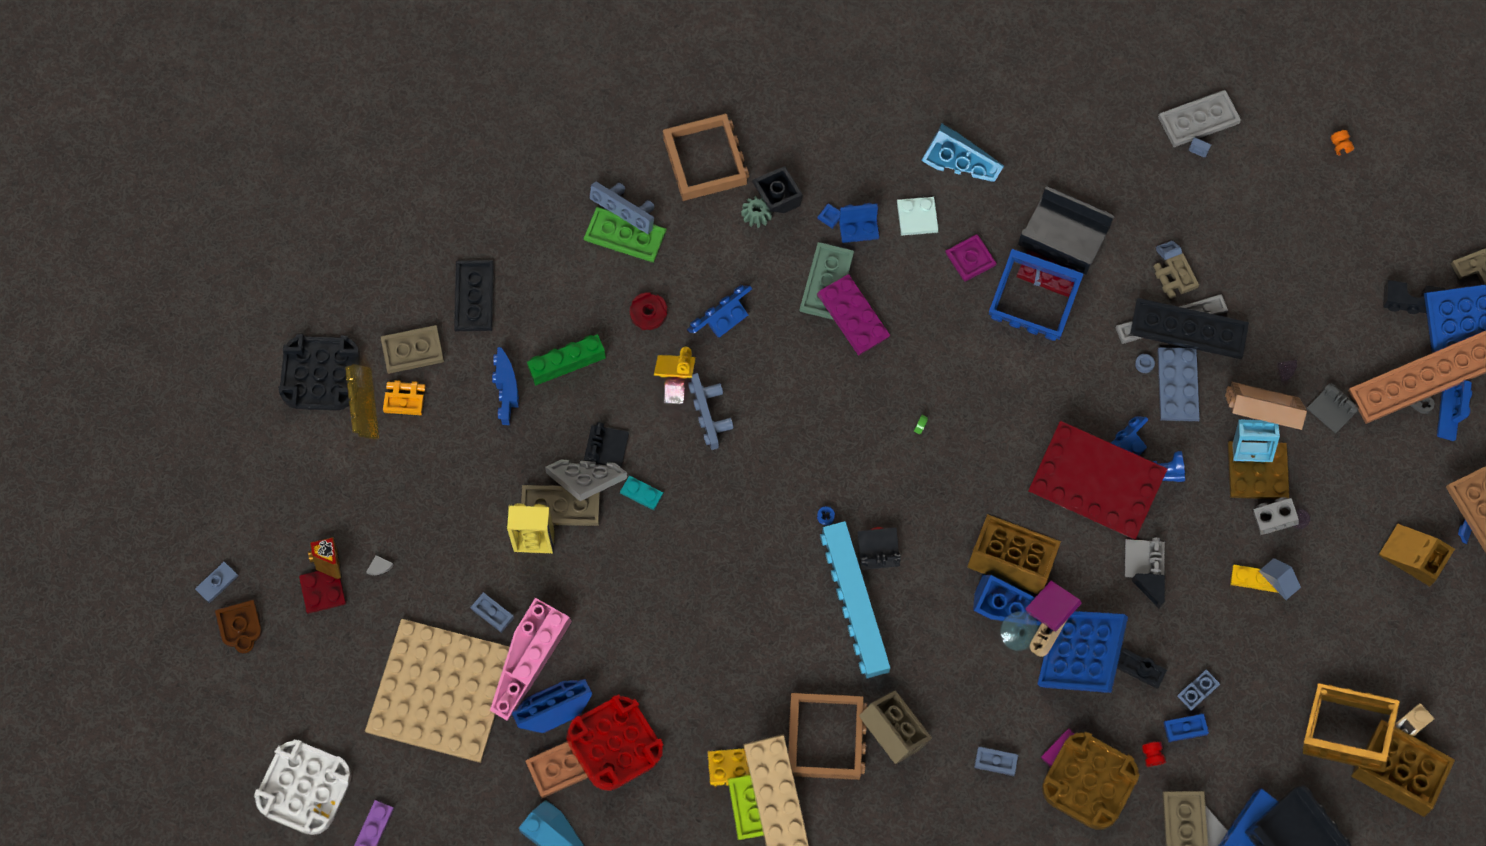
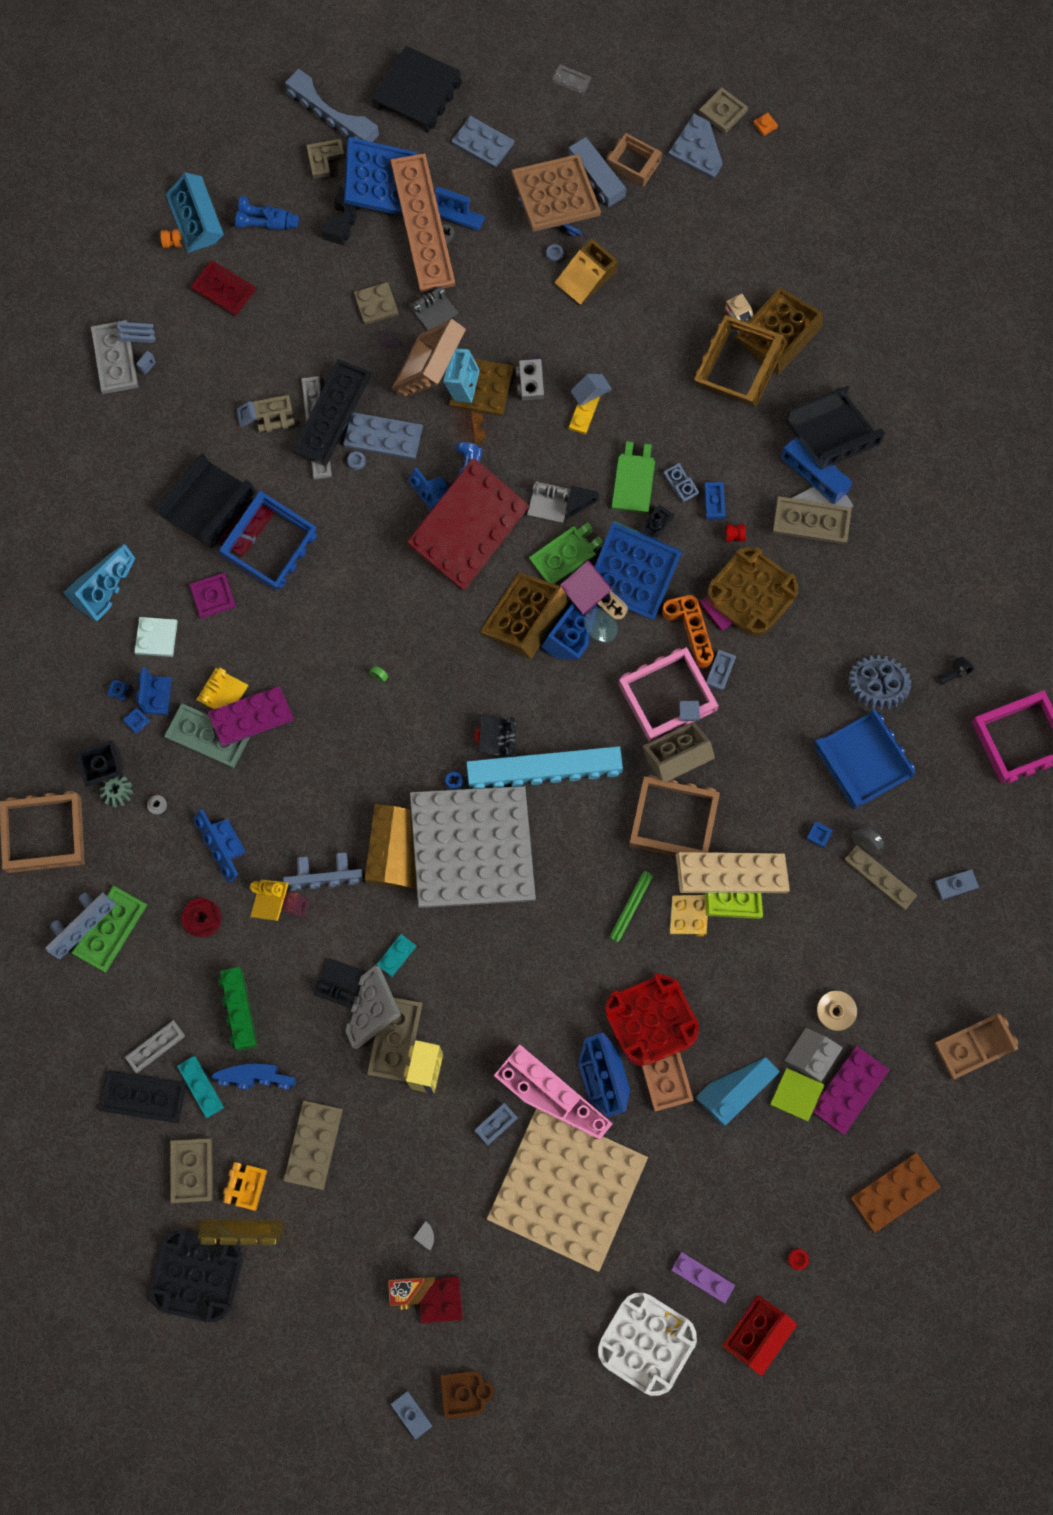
camera: 80 degrees left, 5 degrees up
(450, 451) = (313, 1145): none -> dark tan plate
(490, 342) = (200, 1087): none -> teal plate
(521, 296) = (155, 1046): none -> light grey tile
(728, 708) = (631, 906): none -> bright green axle
(747, 475) = (391, 849): none -> pearl gold slope
(750, 255) = (157, 810): none -> light grey plate
(760, 543) = (472, 847): none -> light grey plate
(857, 189) = (118, 685): none -> blue plate
(875, 285) = (221, 690): none -> yellow hinge
(933, 730) = (666, 728): none -> bright pink window
(941, 730) = (689, 711): none -> sand blue tile
(1031, 724) = (692, 631): none -> orange beam
(1089, 583) = (566, 554): none -> bright green tile
(1190, 641) = (634, 480): none -> bright green tile
(1216, 470) = (477, 419): none -> clear orange plate
(1231, 114) = (135, 329): none -> sand blue tile
(1301, 202) = (223, 288): none -> dark red plate
(1324, 350) = (376, 303): none -> dark tan plate
(1377, 158) = (194, 212): none -> dark azure slope
(1392, 236) = (273, 218): none -> blue piece
(1433, 518) = (554, 253): none -> sand blue tile

